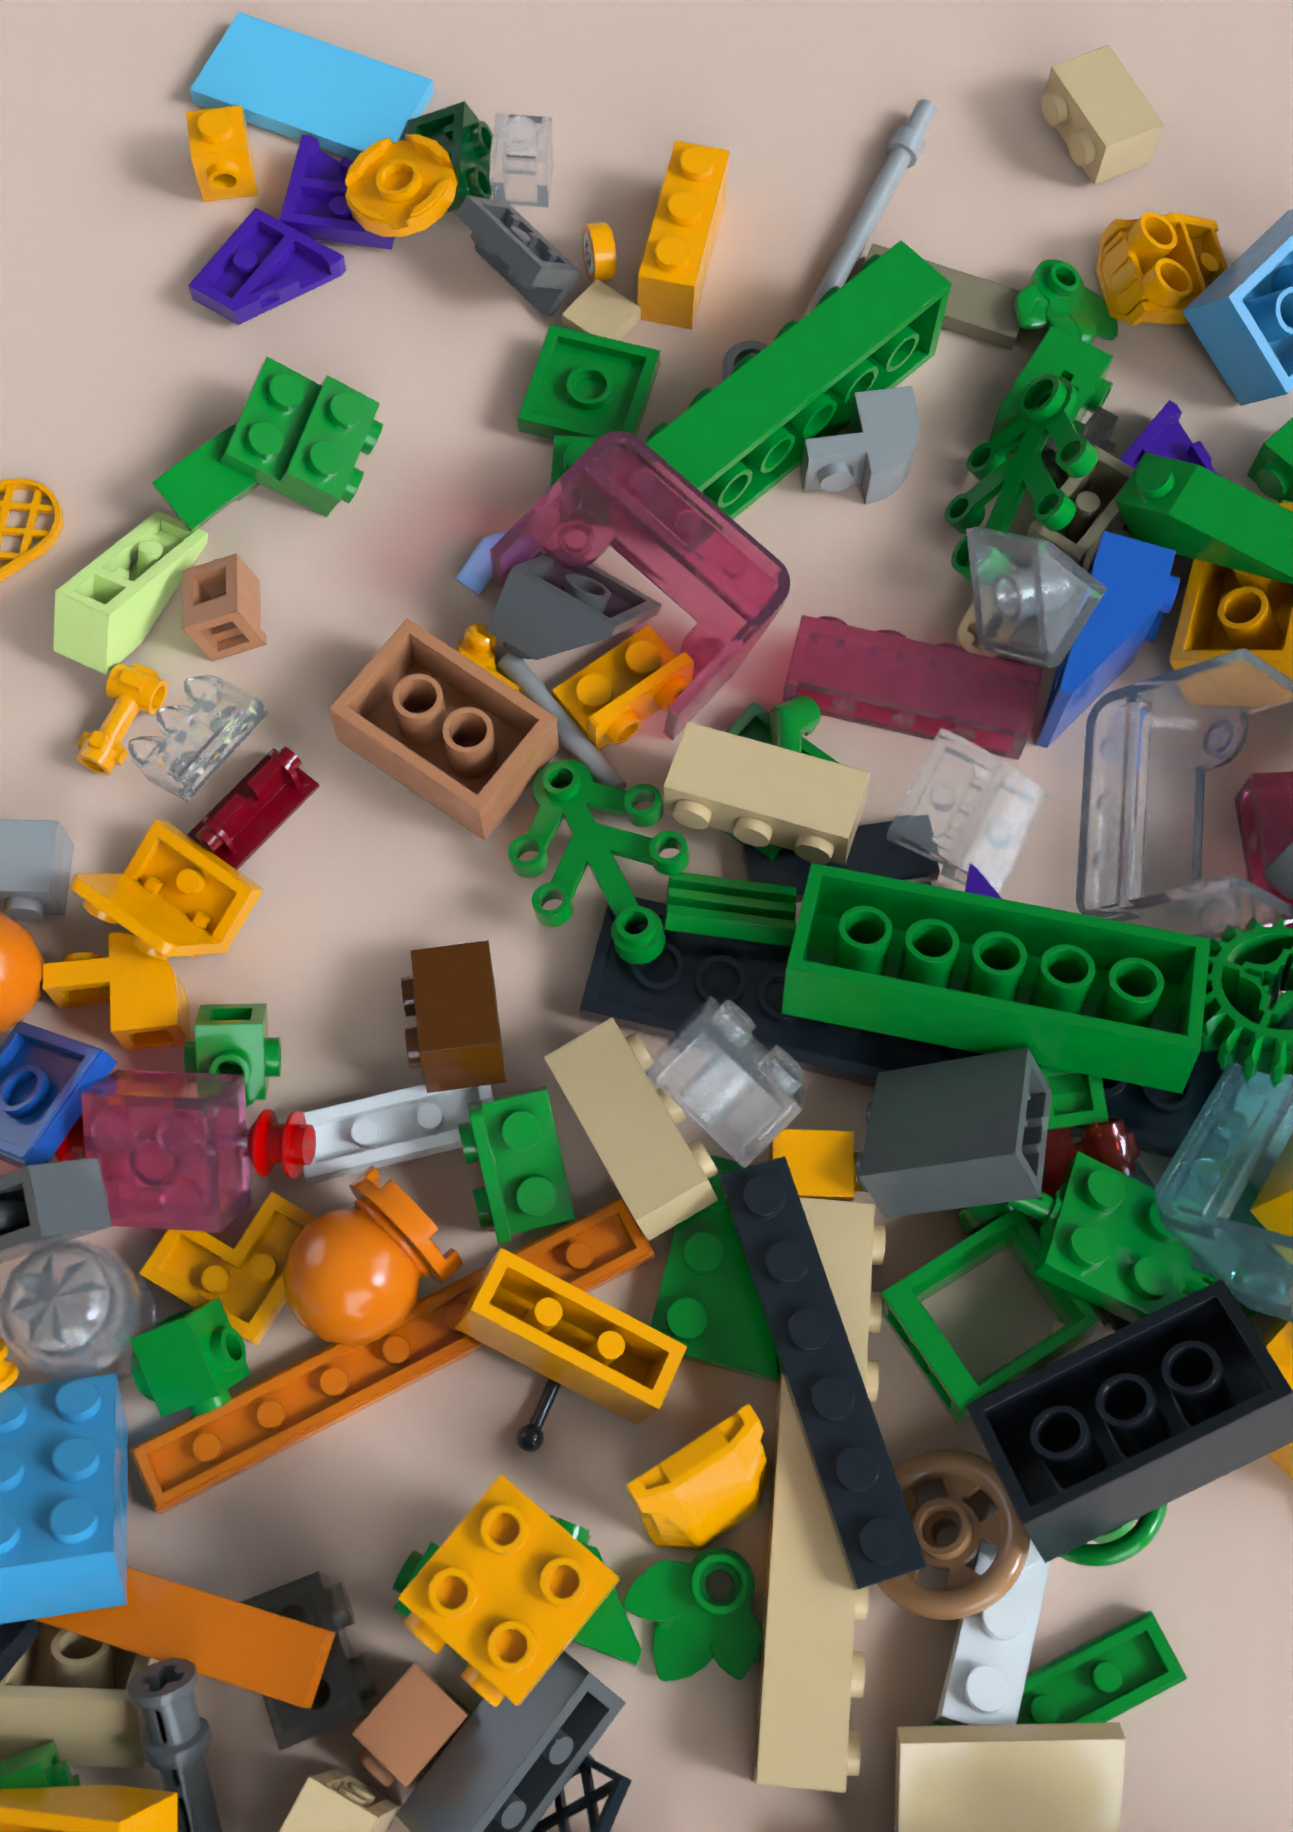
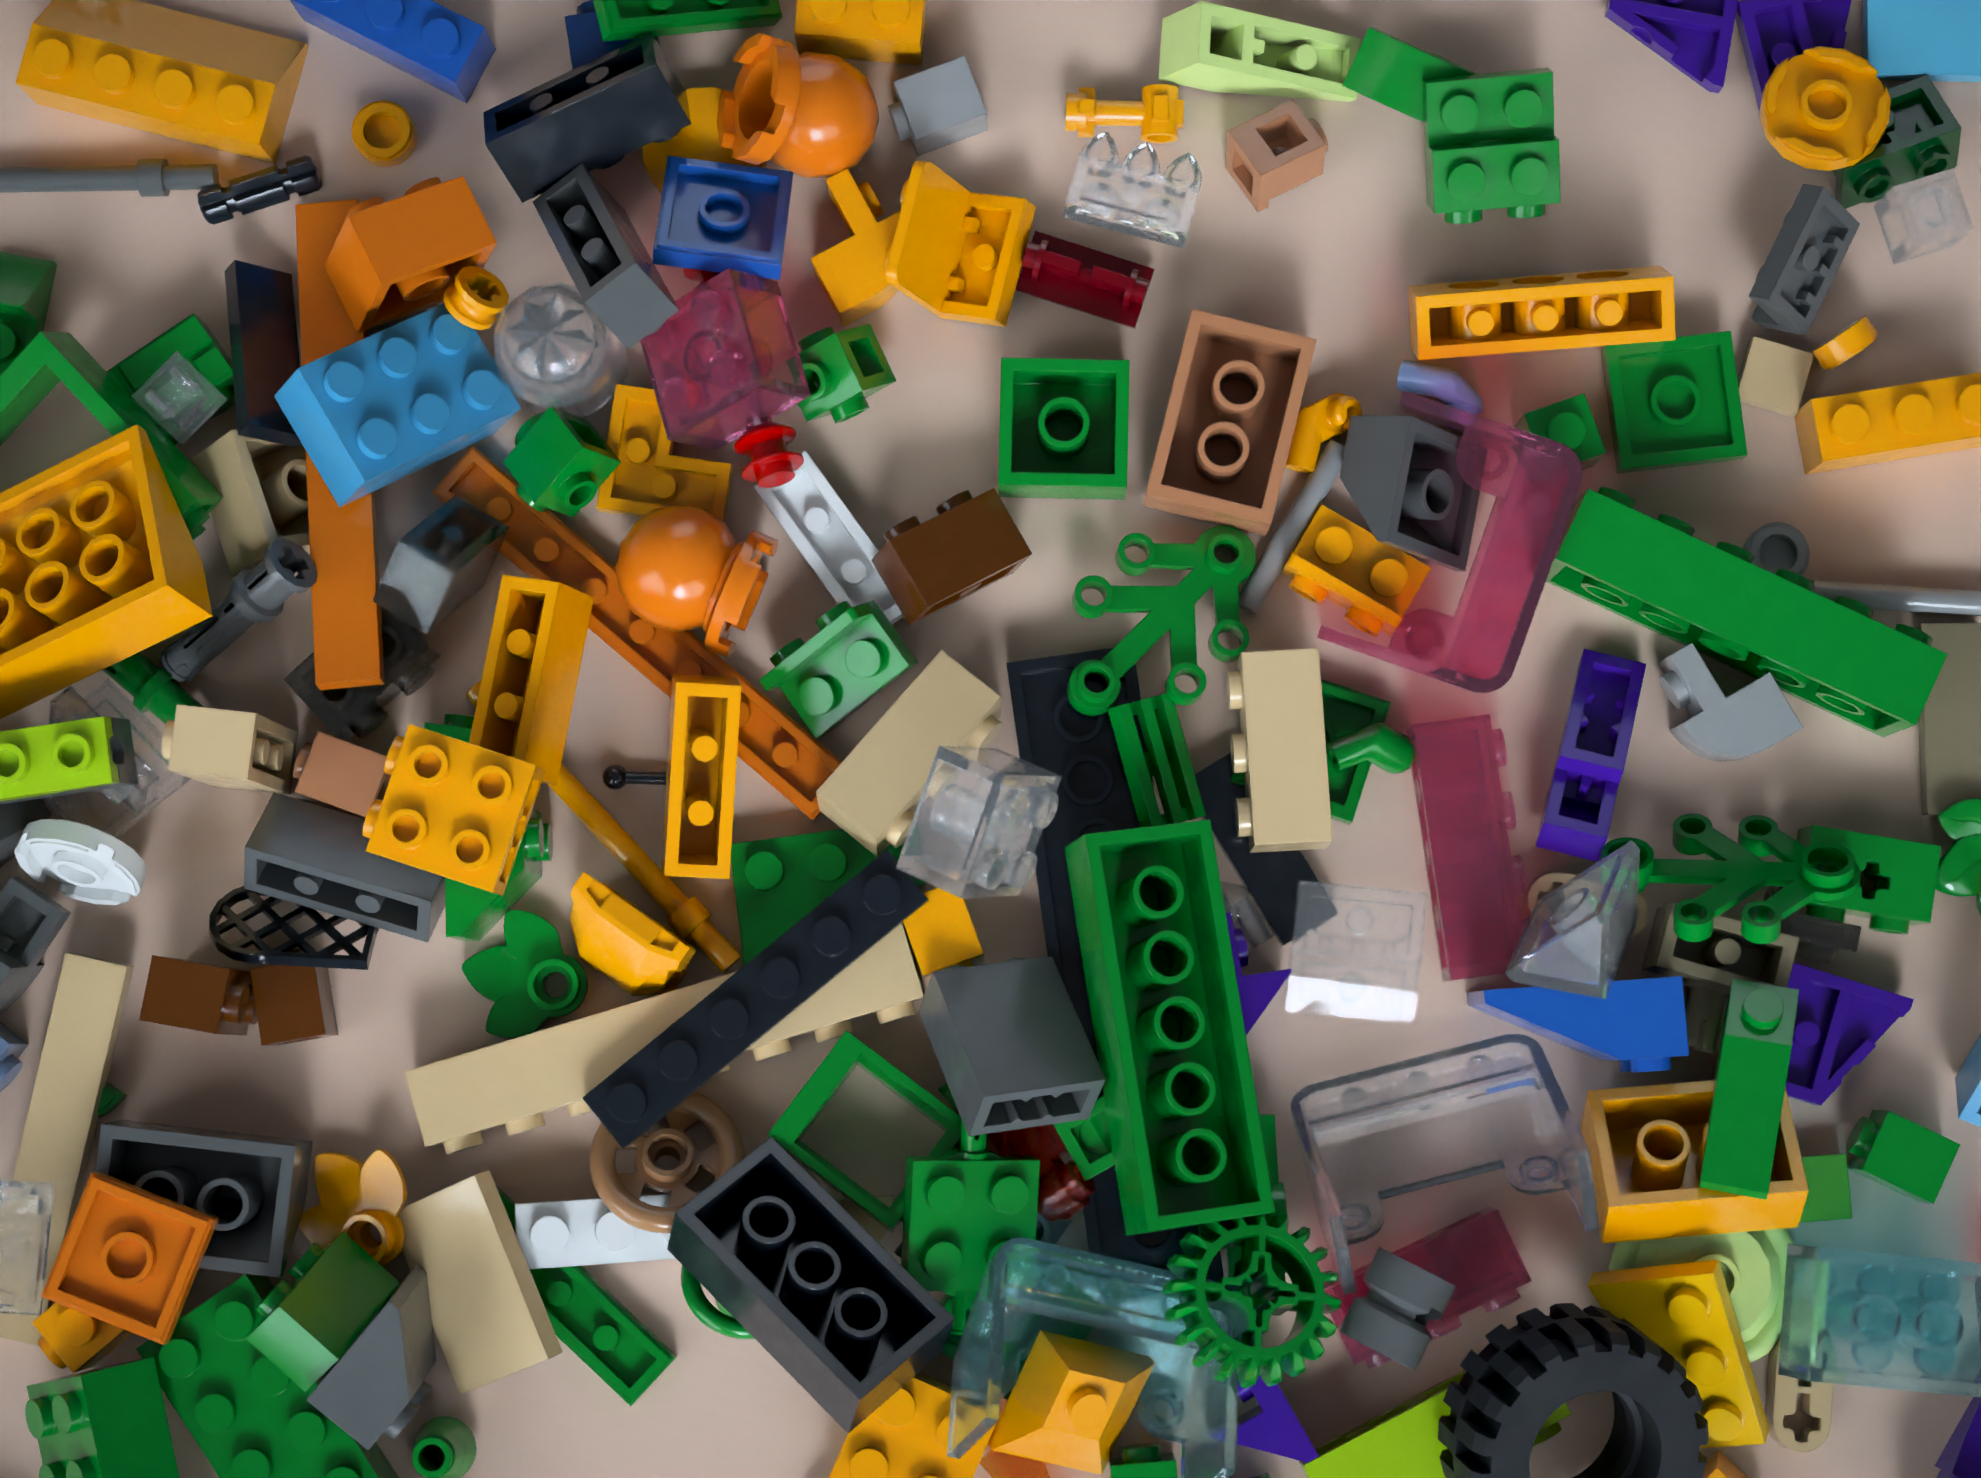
camera: 75 degrees right, 15 degrees up
(237, 1524) = (440, 564): none -> clear smoke brick
(383, 869) = (1063, 428): none -> green brick
(384, 1465) = (532, 671): none -> light orange brick
(467, 451) = (1541, 312): none -> light orange brick
(696, 1419) = (687, 916): none -> light orange bar
(871, 559) = (1591, 755): none -> dark purple slope

